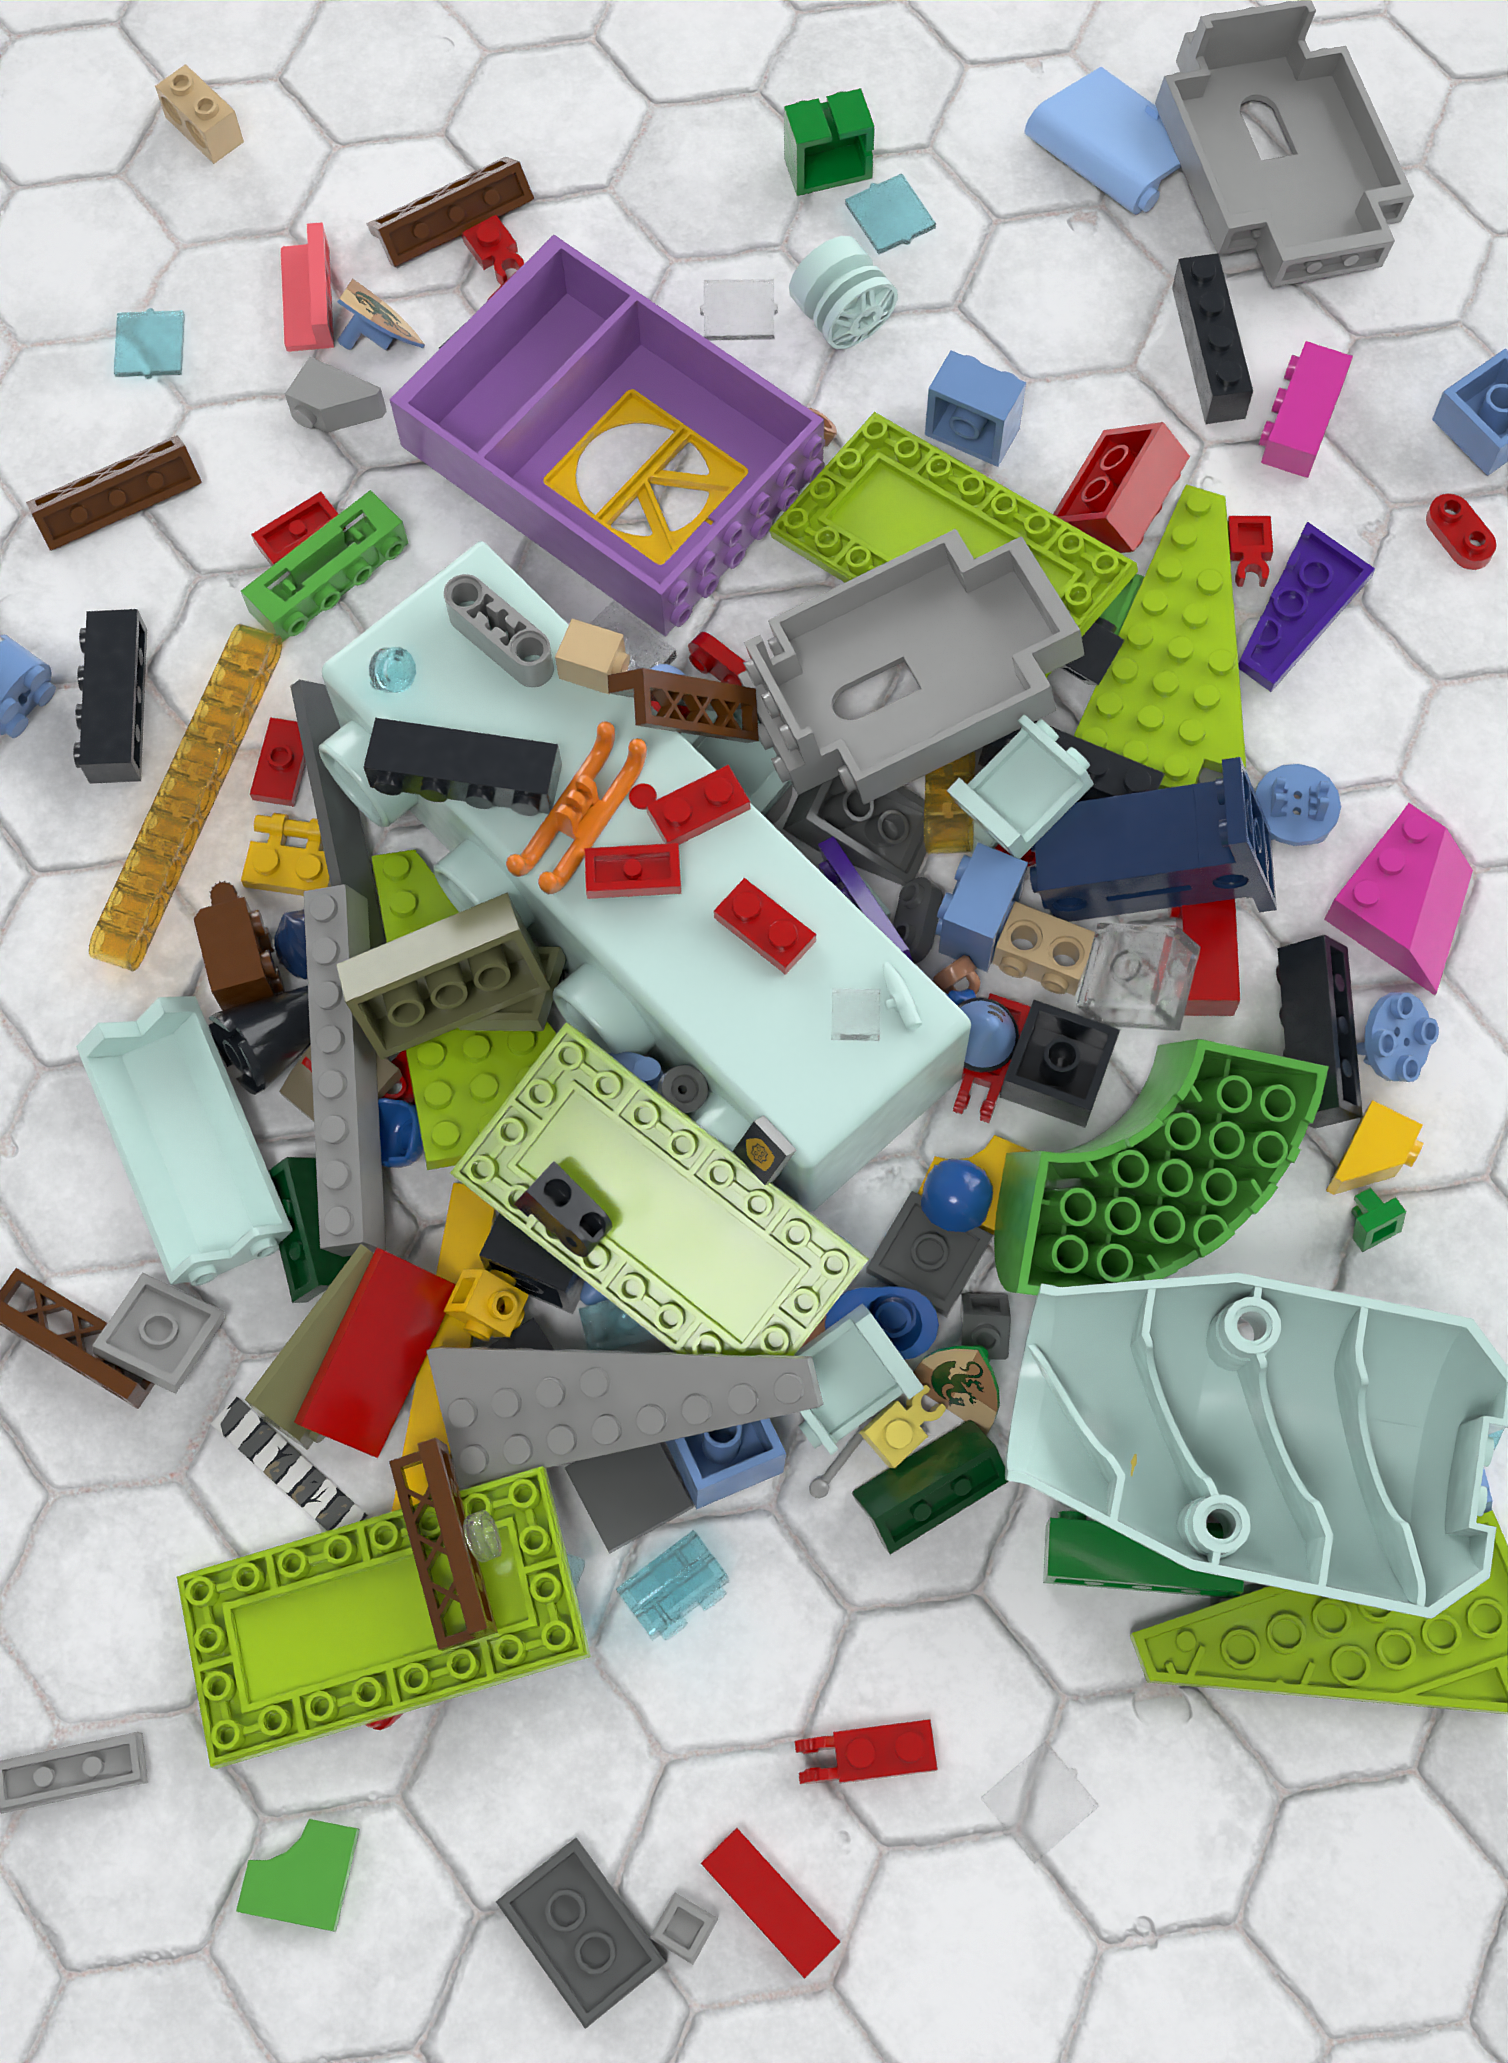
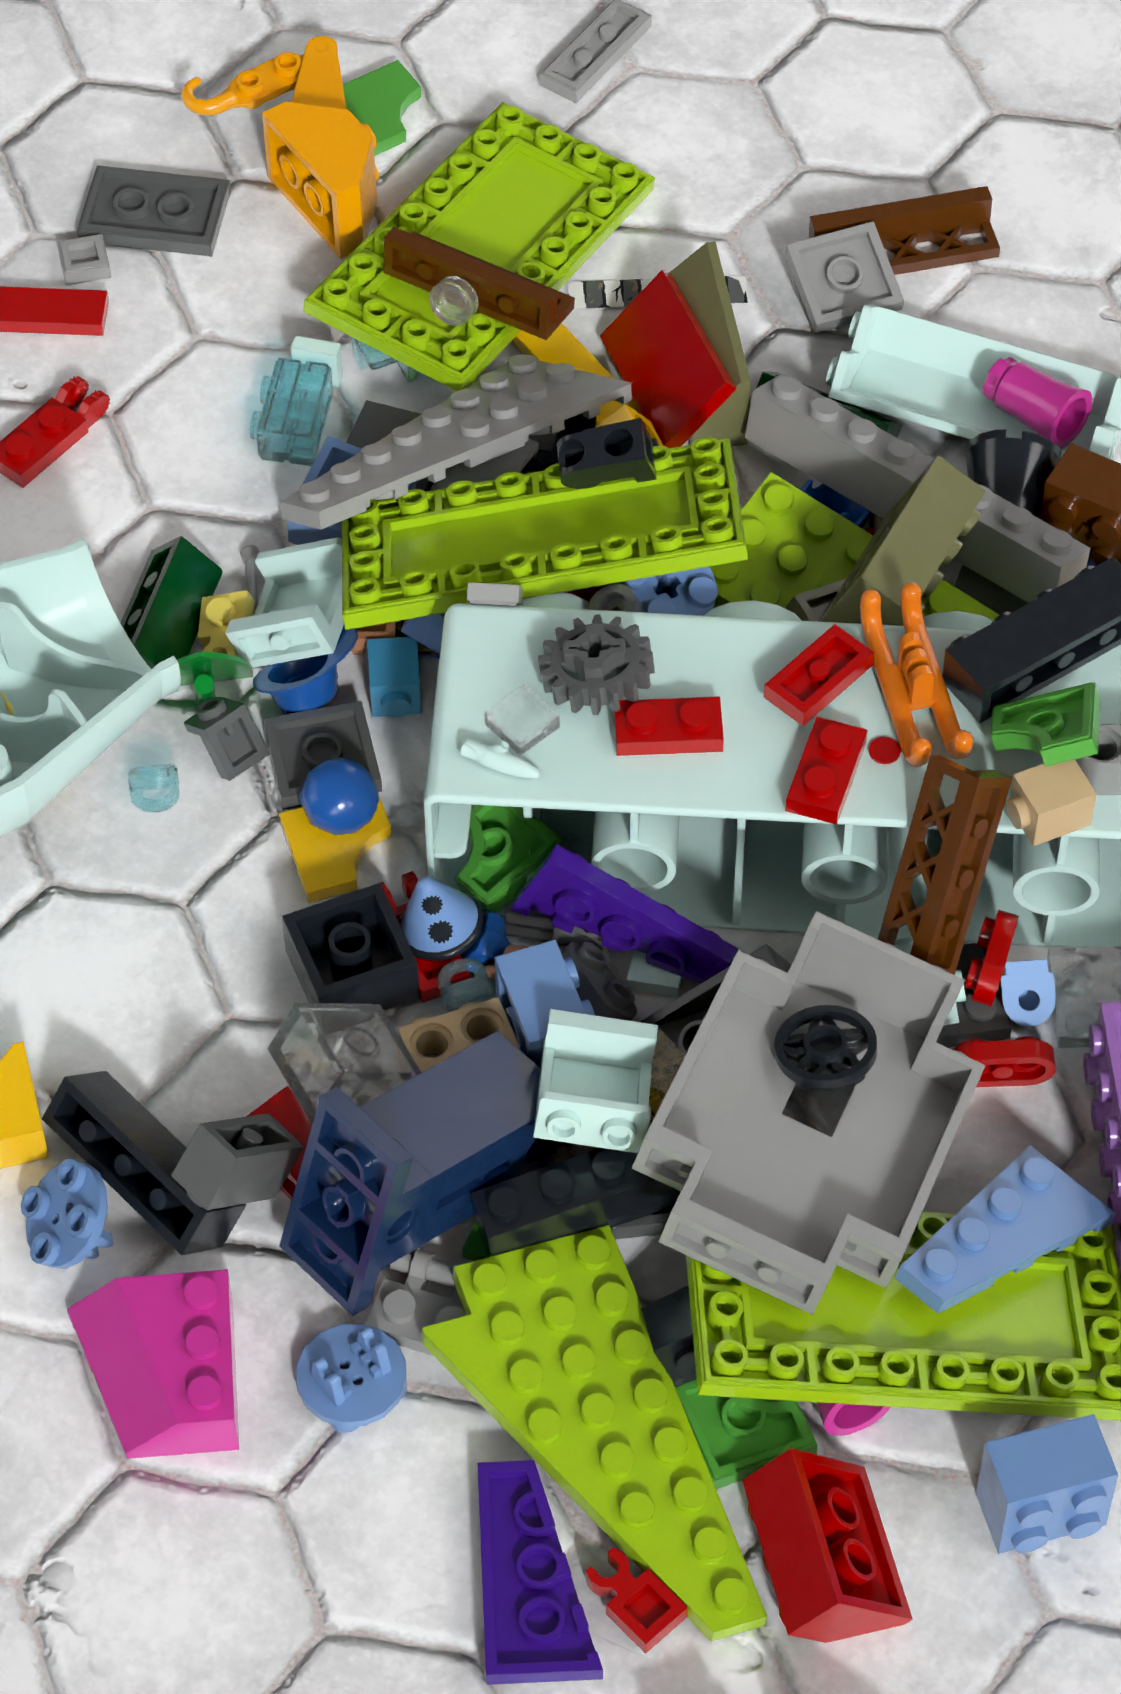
camera: 135 degrees right, 15 degrees down
(162, 1092) = (1038, 400): none -> dark pink plant
(414, 1840) = (313, 143): none -> light orange slope
(538, 686) = (1053, 724): none -> bright green tile
(609, 1622) = (319, 351): none -> light aqua tile
(787, 1013) = (596, 664): none -> dark grey gear
(847, 543) = (1003, 1230): none -> medium blue wing
(856, 696) = (825, 1047): none -> black wheel
(1003, 982) = (465, 991): none -> clear light blue tile
(1163, 1179) = (180, 917): bright green brick -> none
(1277, 947) = (237, 1161): none -> dark grey brick

